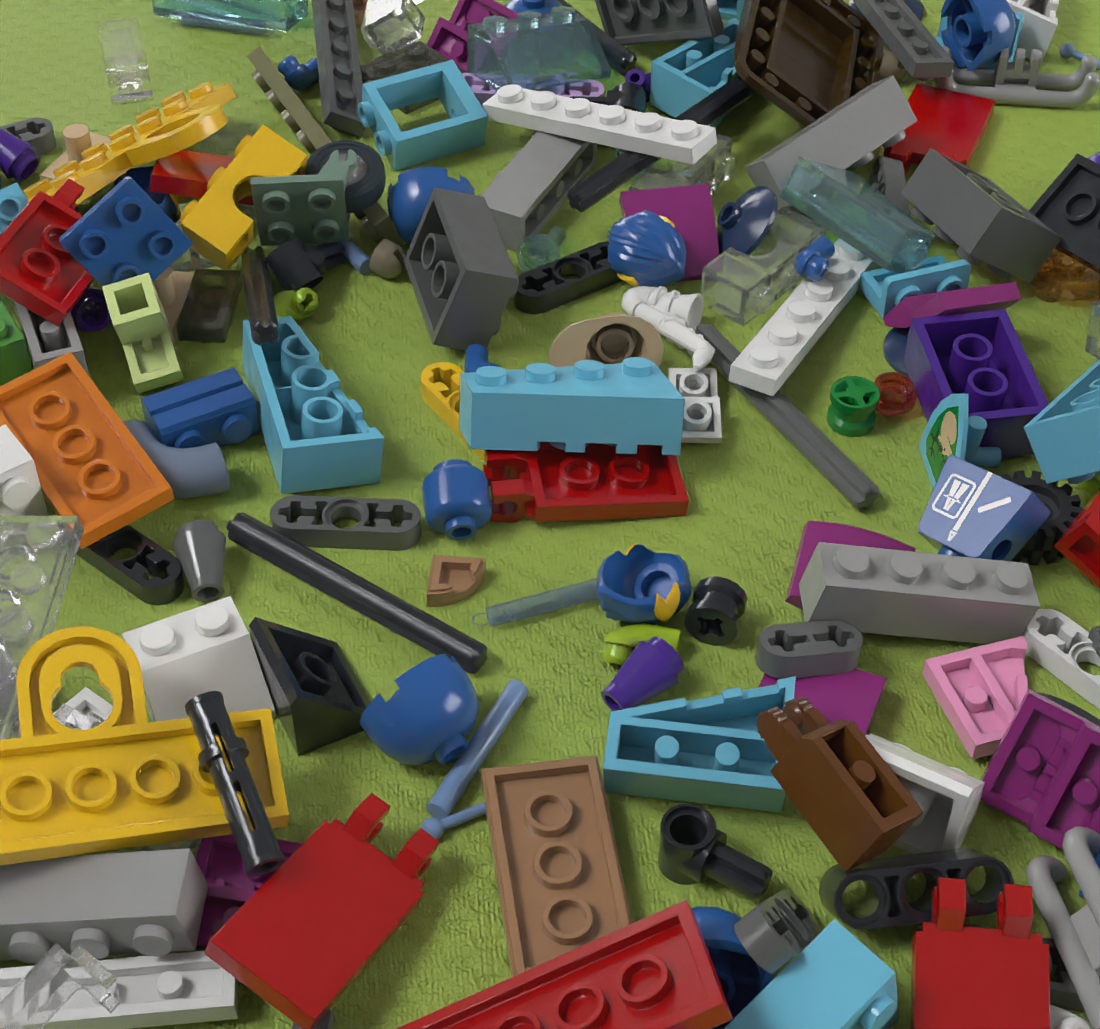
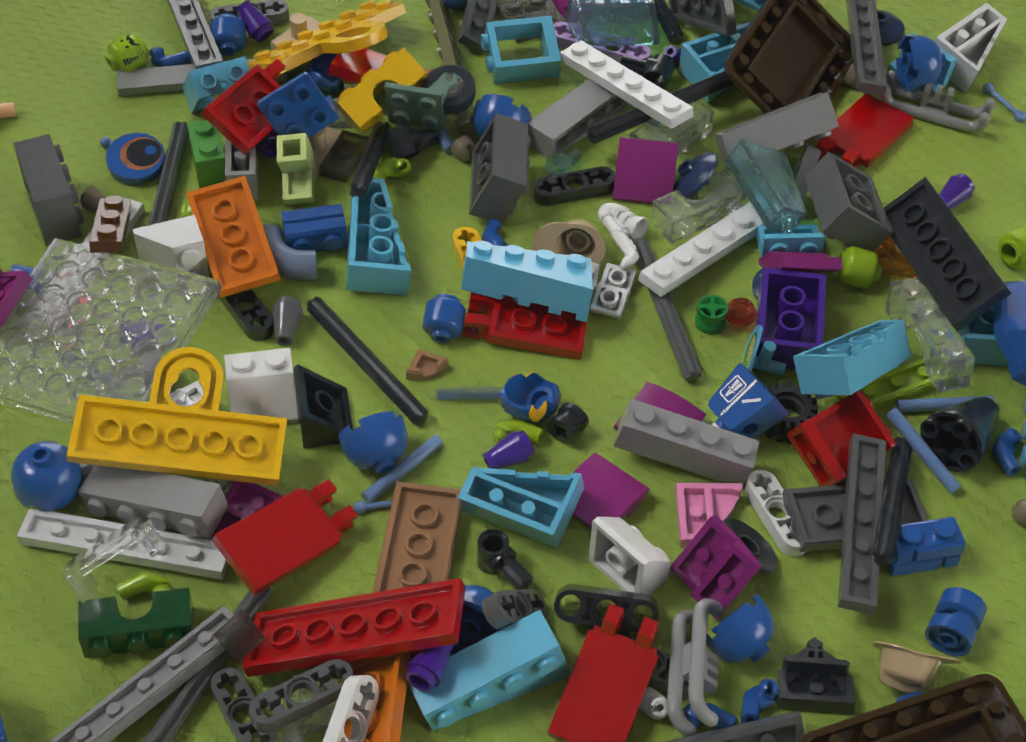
camera: 15 degrees right, 5 degrees up
(210, 719) = (250, 417): black pin -> none
(362, 536) = (362, 307): dark grey beam -> none
(646, 250) = (623, 180): blue hair -> none
(808, 649) = (608, 459): dark grey beam -> none
(814, 259) = (723, 212): blue arm -> none
(837, 782) = (577, 538): reddish brown hinge -> none
(1039, 298) = (859, 268): none -> lime head

